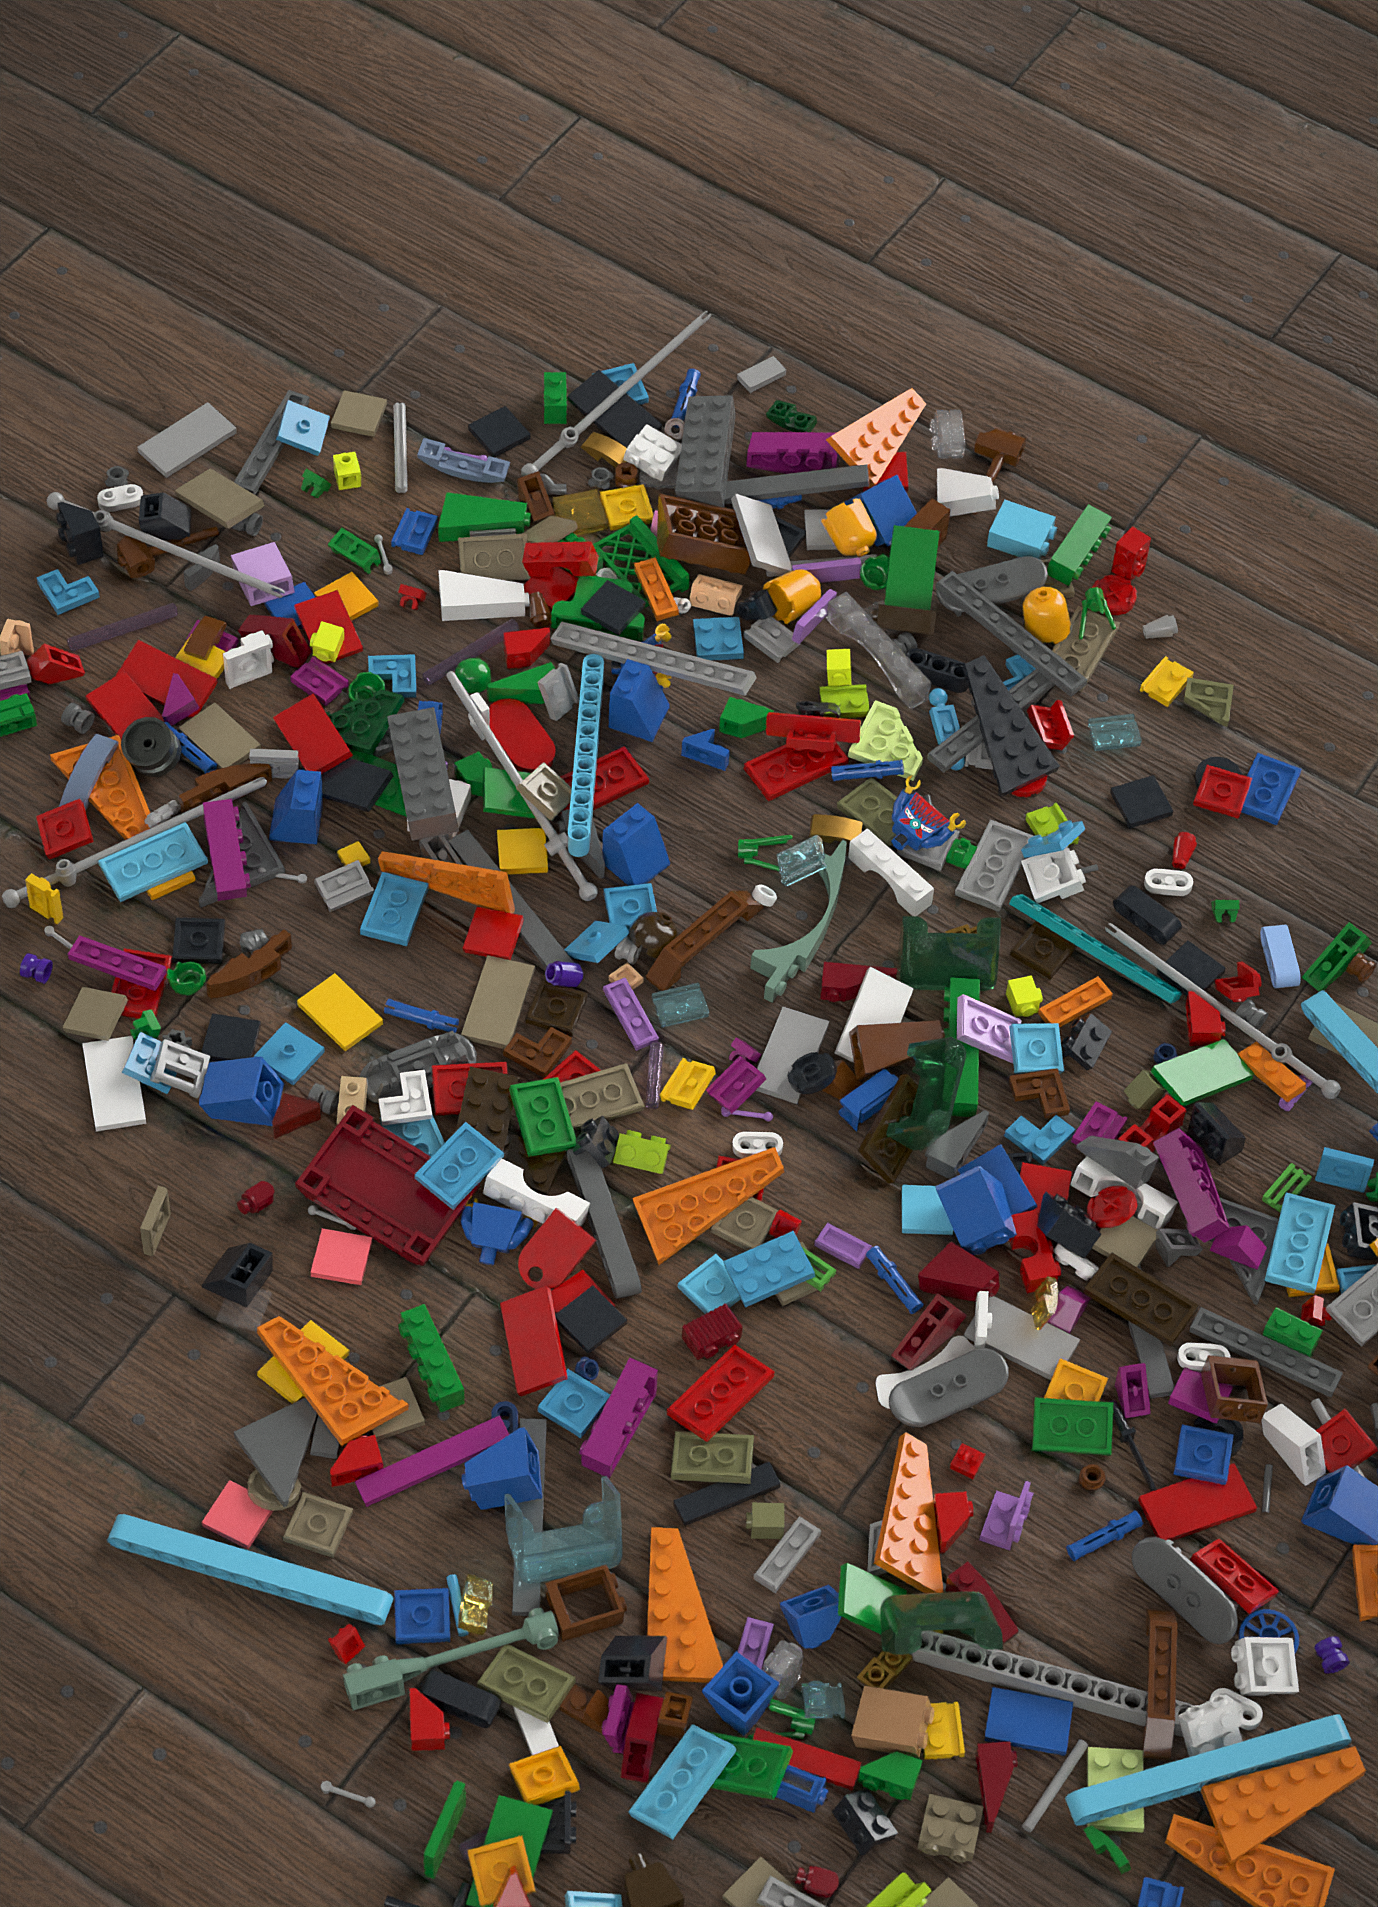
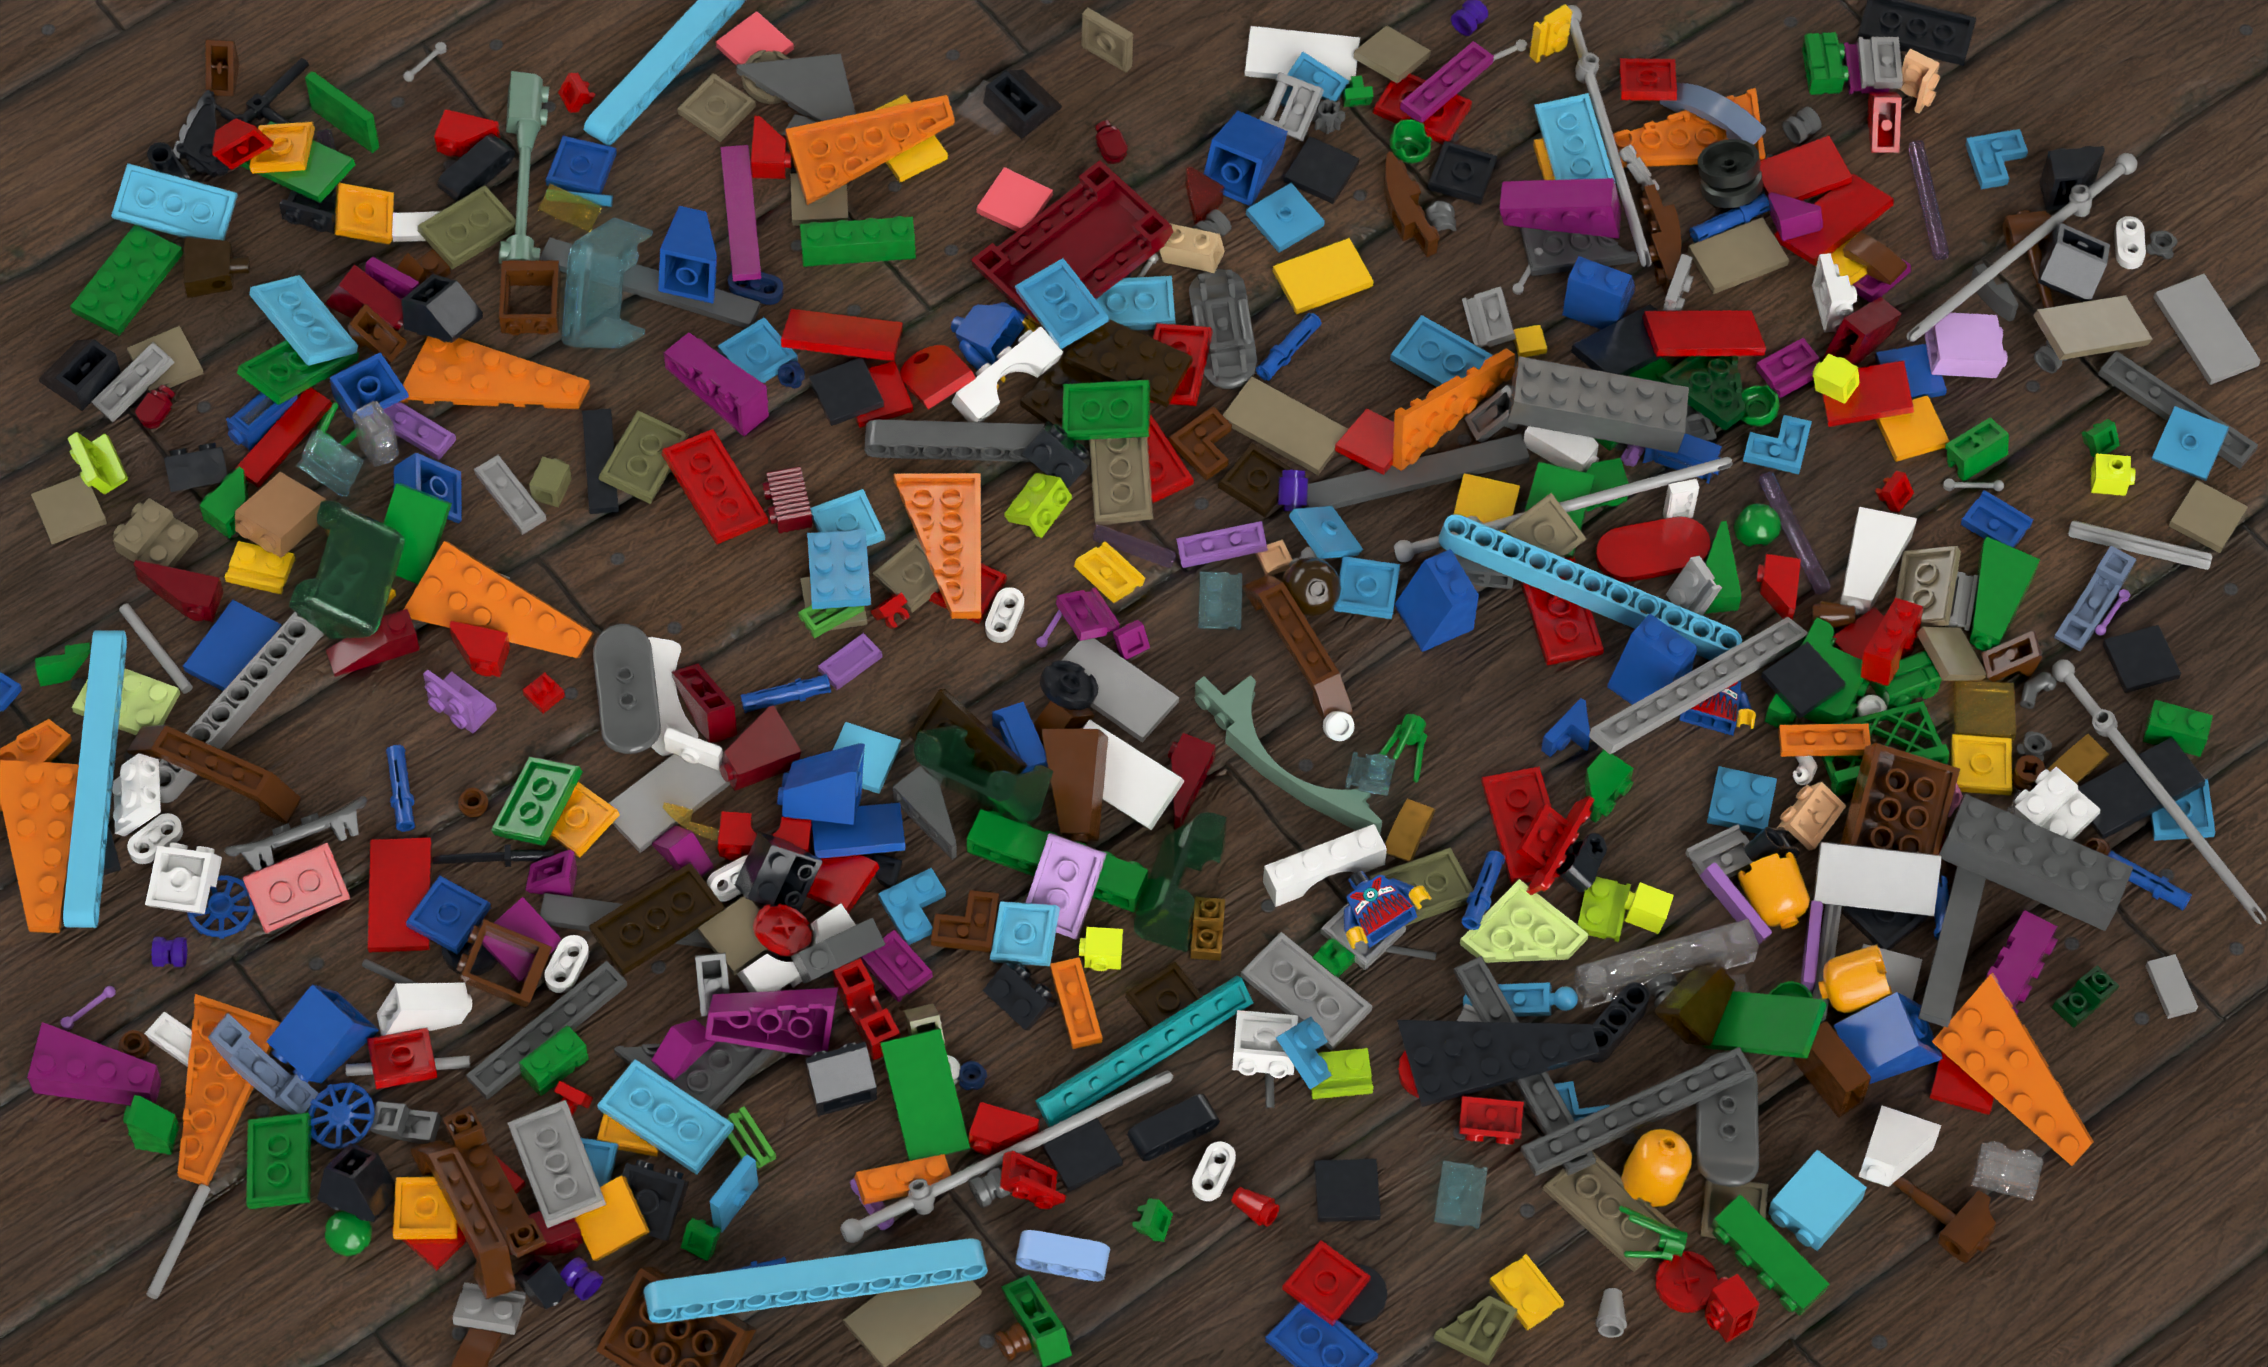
camera: 110 degrees right, 5 degrees up
(411, 1106) = (1172, 302): white plate -> none

